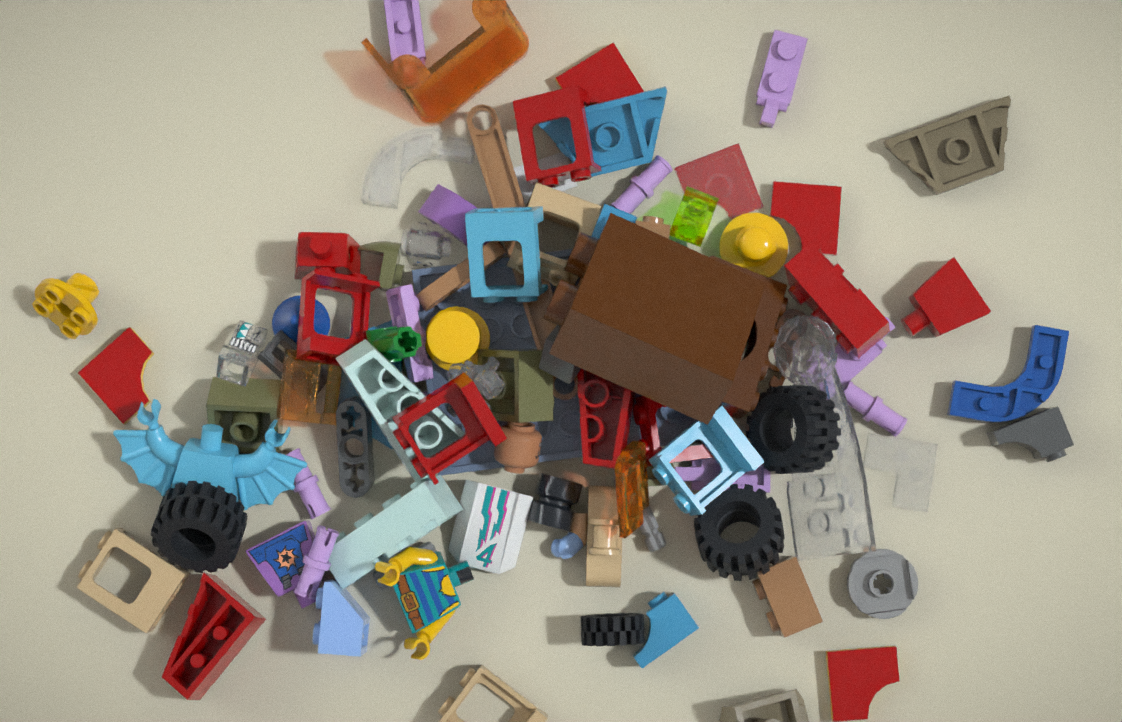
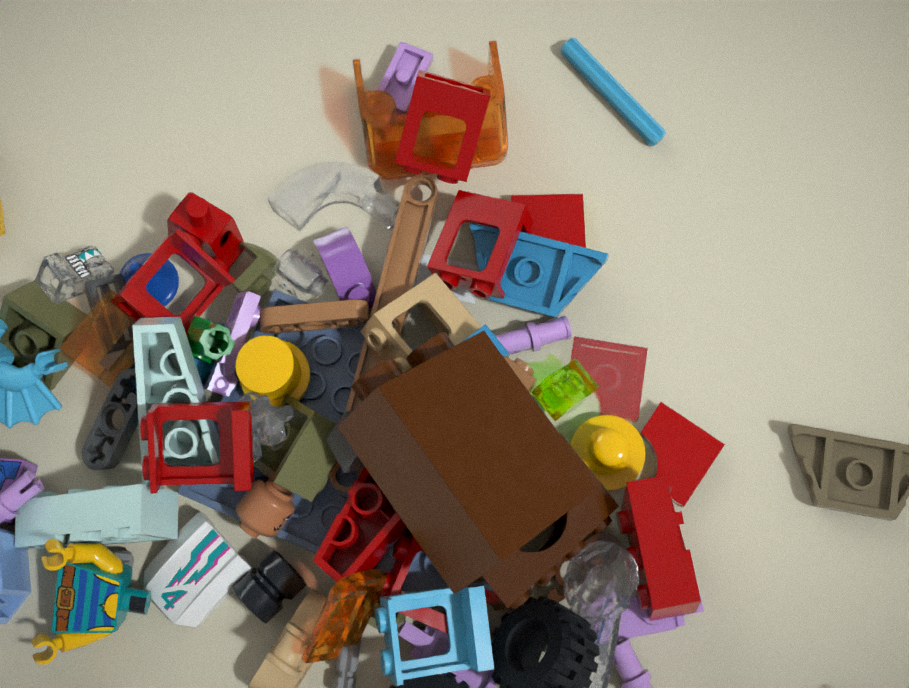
camera: 30 degrees right, 10 degrees down
(308, 489) = (53, 431): lavender pin -> none
(467, 34) = (451, 99): none -> red window
(505, 225) = (377, 287): medium azure window -> none
(574, 540) = (265, 635): light blue arm -> none
(779, 75) = (721, 309): lavender hinge -> none
(944, 302) = (767, 616): red torso -> none

